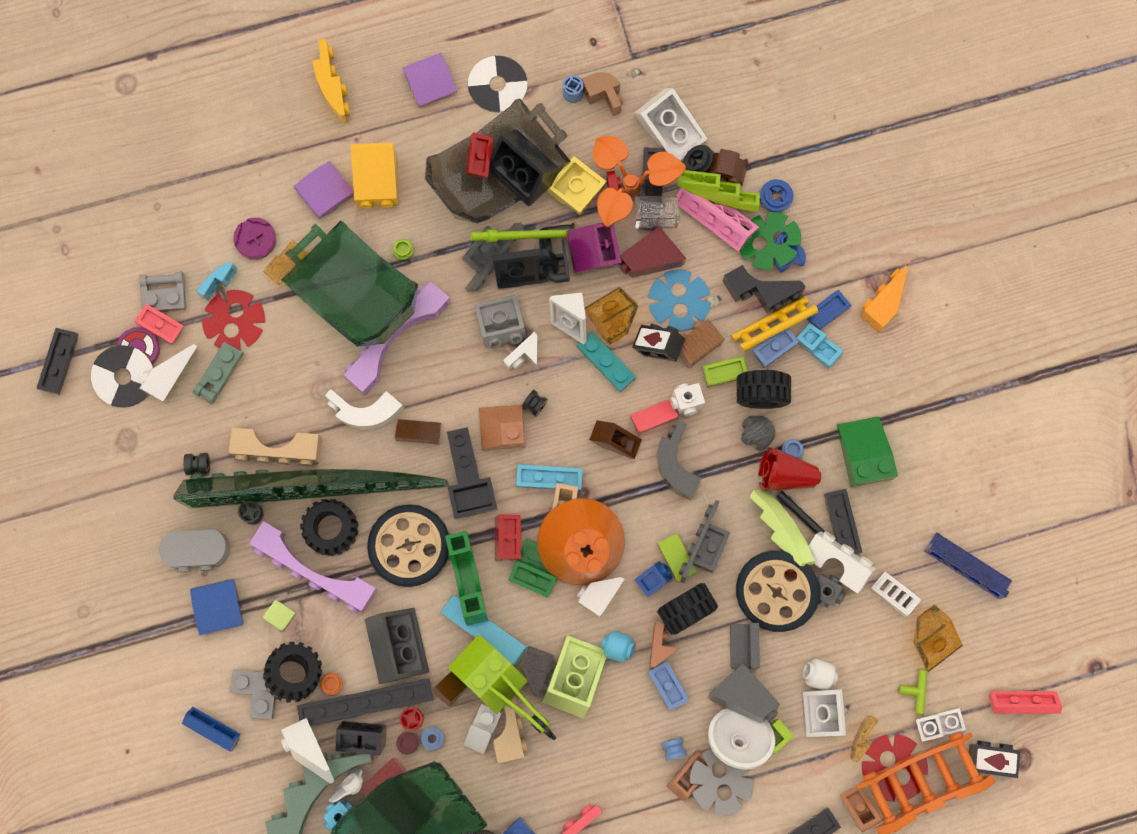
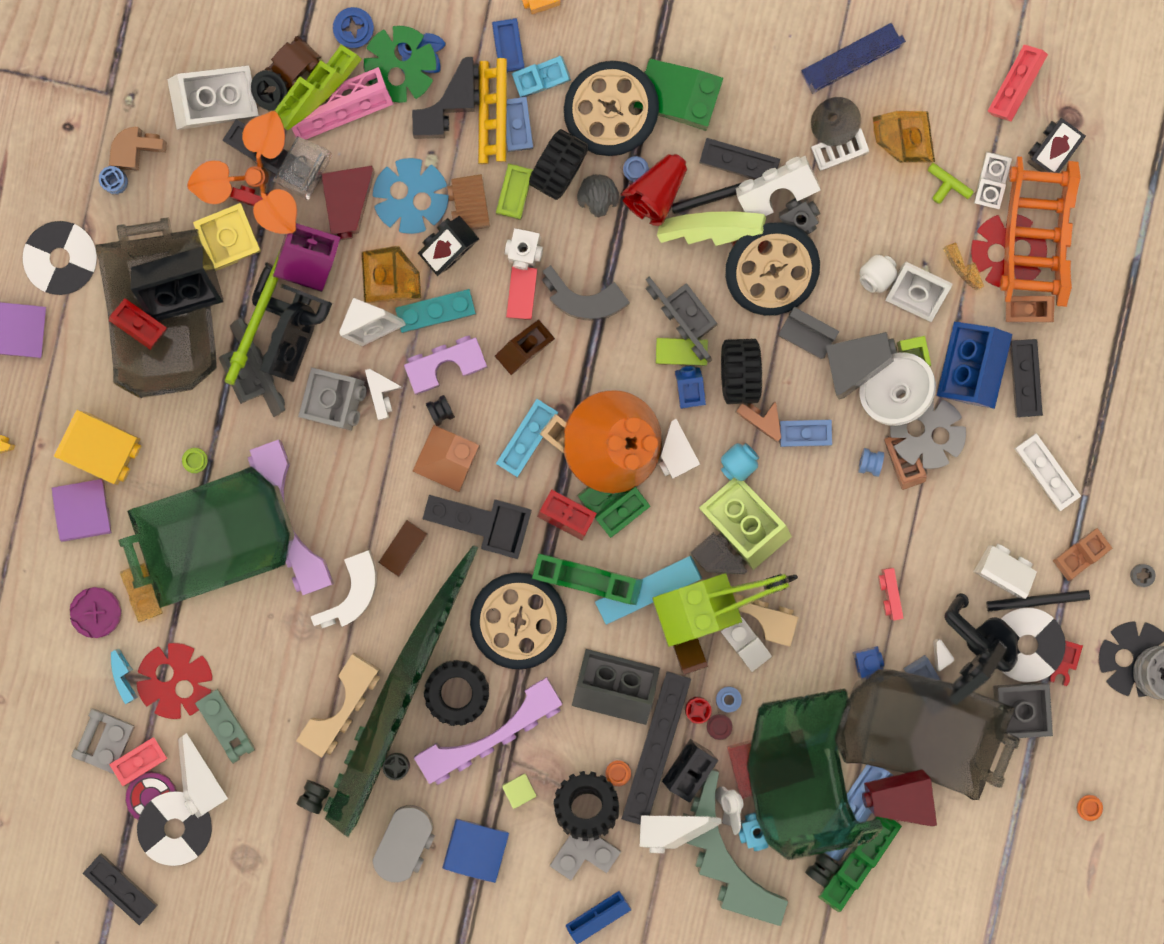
camera: 65 degrees left, 10 degrees up
(557, 375) = (423, 370): none -> lavender arch
(793, 789) = (974, 364): none -> blue slope
(827, 435) = (640, 125): none -> wedge
(913, 586) = (843, 128): none -> clear smoke dish

